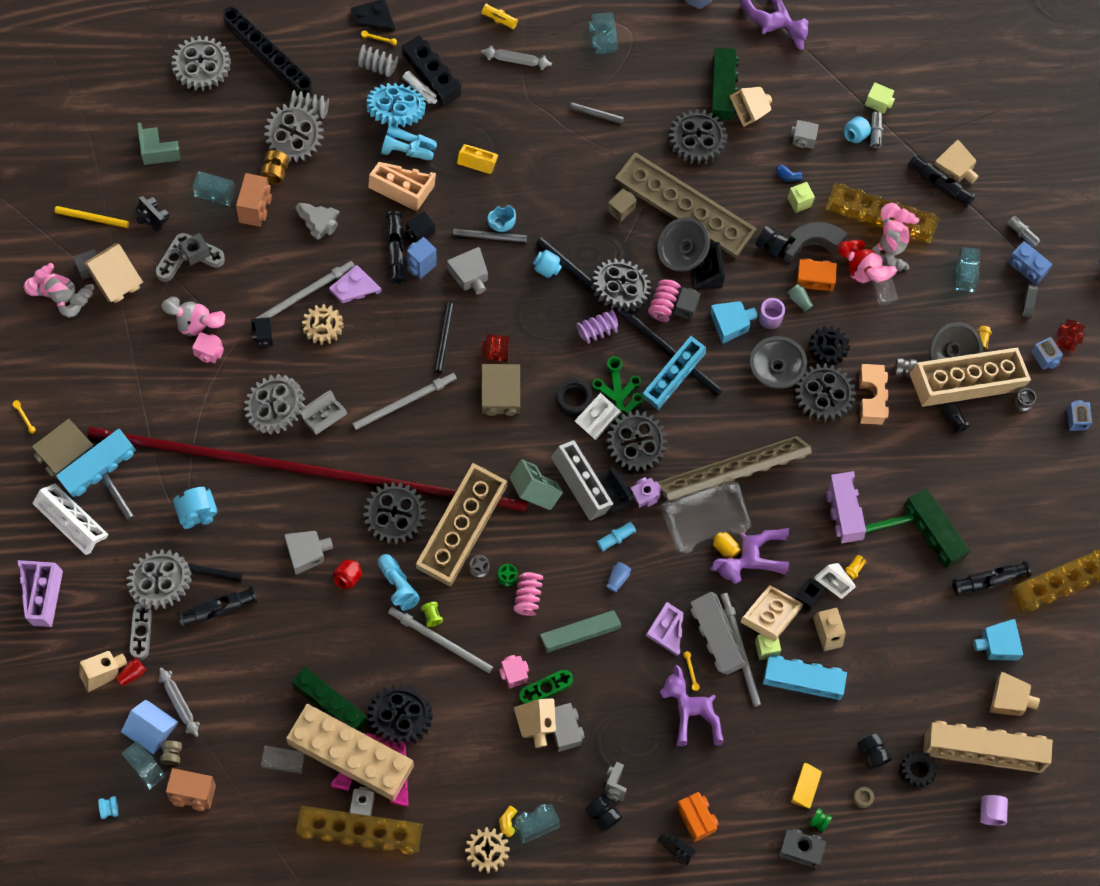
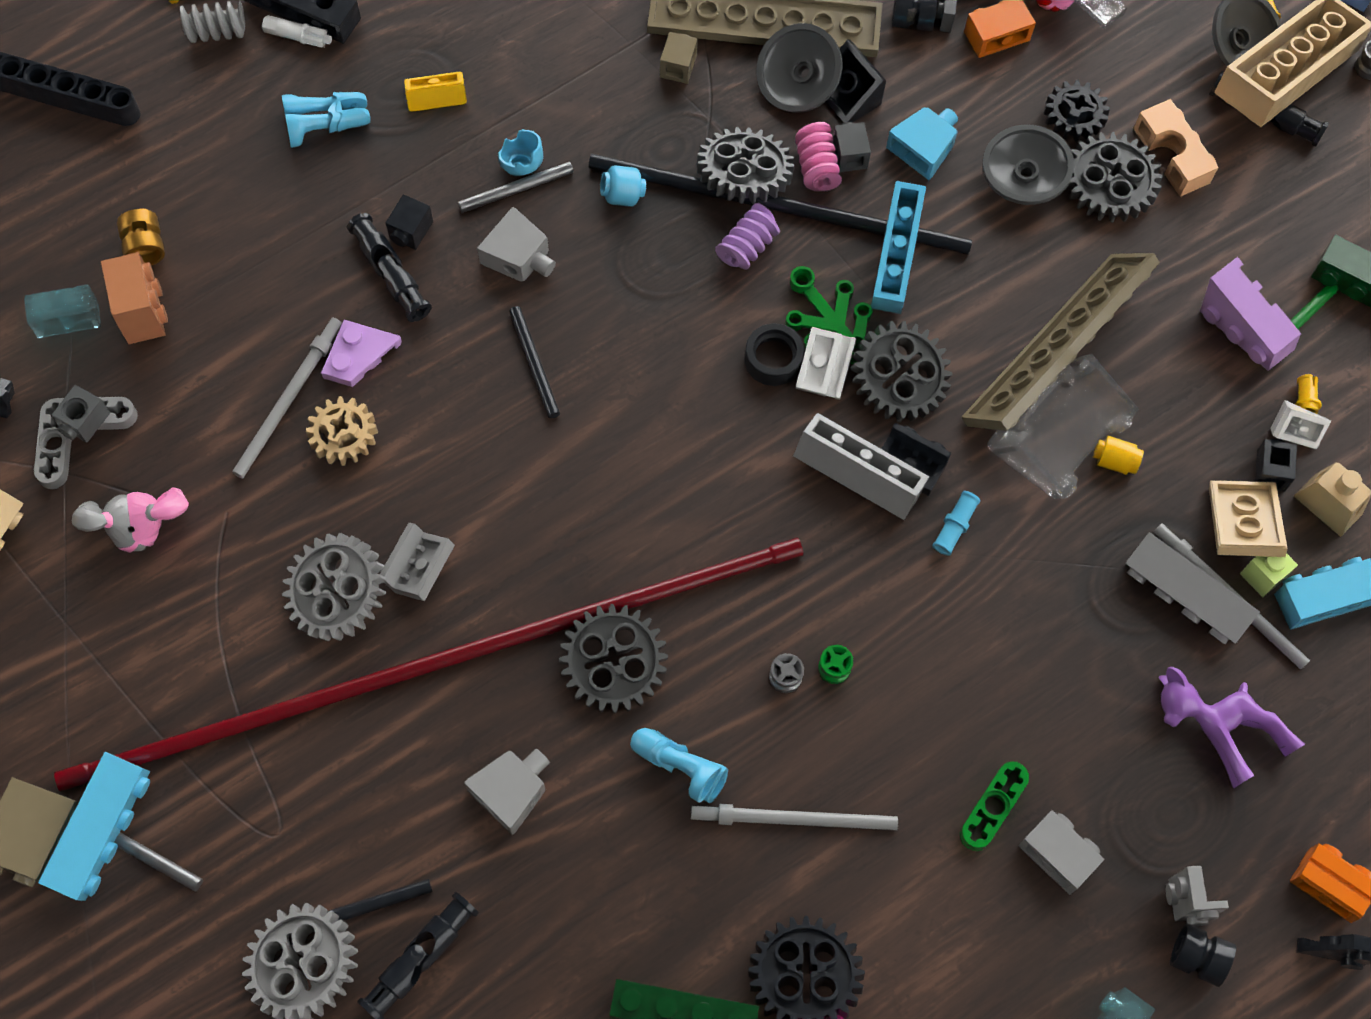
camera: 25 degrees left, 0 degrees up
(67, 520) = (92, 944): white fence -> none
(195, 507) = (297, 813): medium azure brick -> none
(208, 347) = (181, 553): bright pink brick -> none
(262, 332) = (254, 487): black brick -> none
(301, 117) = (144, 147): light grey gear -> none
(318, 219) = (248, 282): light grey rock -> none
(319, 106) = (144, 127): light grey piece -> none
(347, 574) = (595, 792): red head -> none
(395, 105) = (275, 68): medium azure gear -> none
(402, 185) = (346, 174): light nougat wedge -> none
(421, 258) = (437, 261): medium blue brick -> none
(431, 614) = (759, 785): lime bush -> none
(437, 384) = (563, 435): light grey bar -> none
(461, 524) = (728, 624): tan brick -> none
(496, 347) = (620, 337): clear red brick -> none
(501, 389) = (662, 394): dark tan brick -> none
(514, 671) = (934, 806): bright pink brick -> none
(526, 593) = (883, 675): bright pink piece -> none
(533, 486) = (795, 510): sand green panel -> none
(536, 720) = (1018, 865): tan torso -> none
(580, 631) = (990, 691): sand green slope -> none
(618, 576) = (995, 579): medium blue cone -> none
(646, 498) = (962, 436): lavender brick -> none
(667, 628) = (1111, 620): lavender wing -> none
(695, 686) = (1202, 684): yellow hinge -> none
(750, 559) = (1147, 484): medium lavender animal -> none
(771, 313) = (974, 104): lavender piece -> none
(800, 297) = (996, 66): sand green cone -> none
(904, 367) = (1198, 90): flat silver wheel -> none

